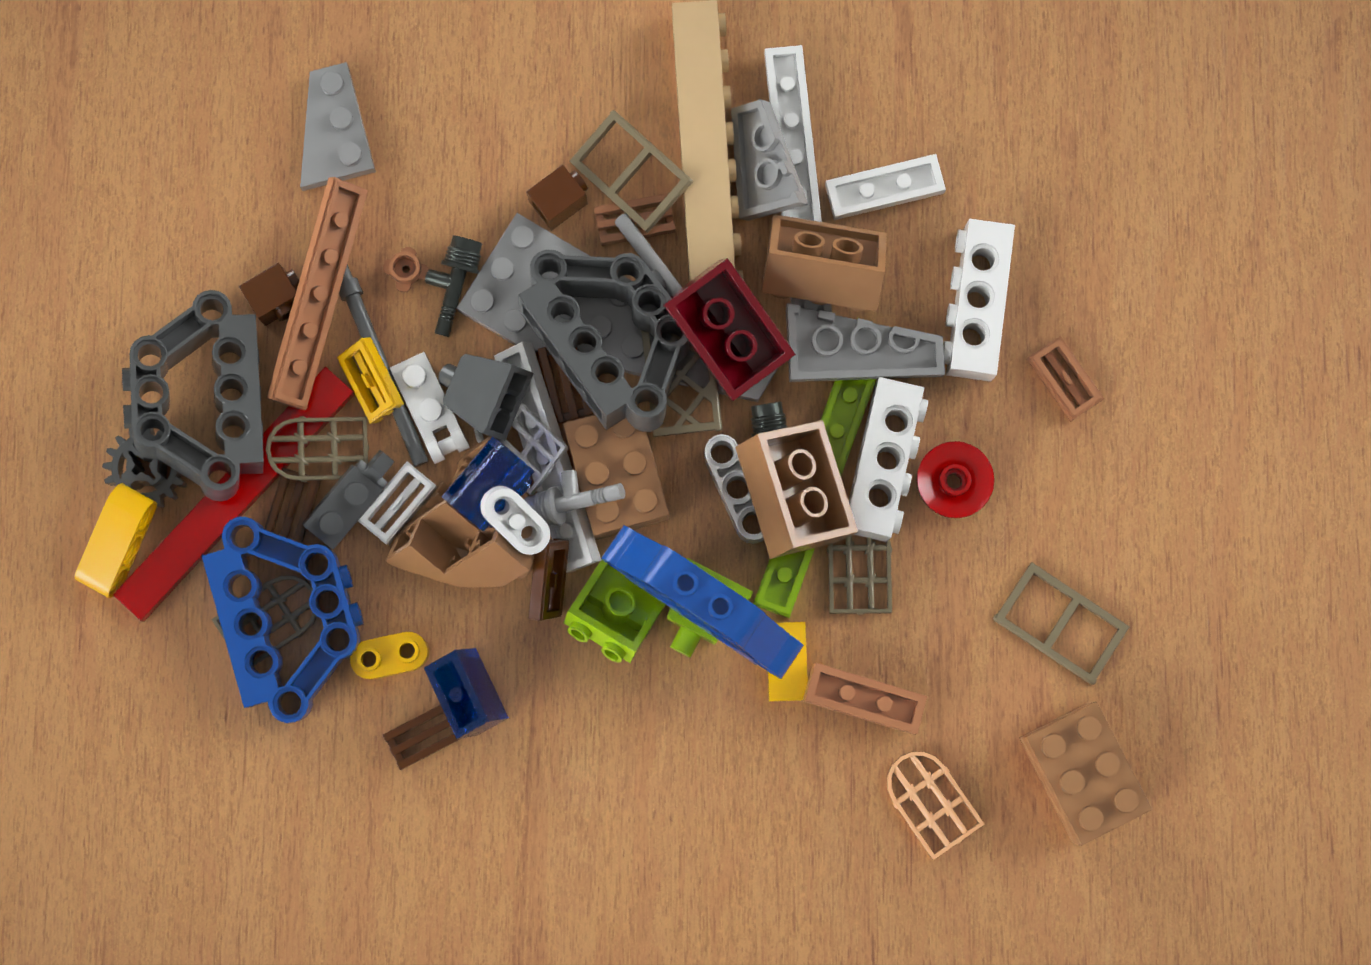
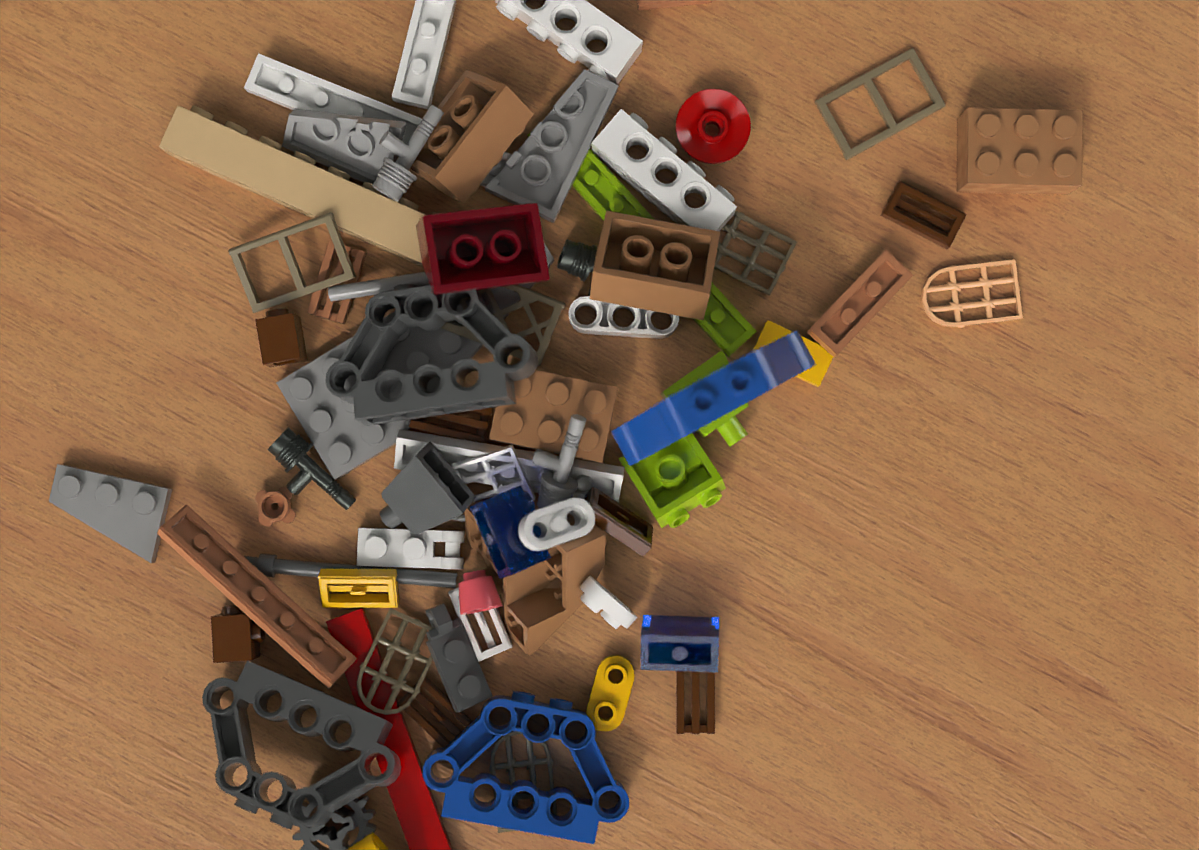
camera: 65 degrees left, 5 degrees up
(418, 486) = (478, 593): none -> coral hat
(467, 616) = (599, 598): none -> white plate
(751, 217) = (393, 176): none -> light grey piece
(980, 749) = (914, 226): none -> reddish brown tile

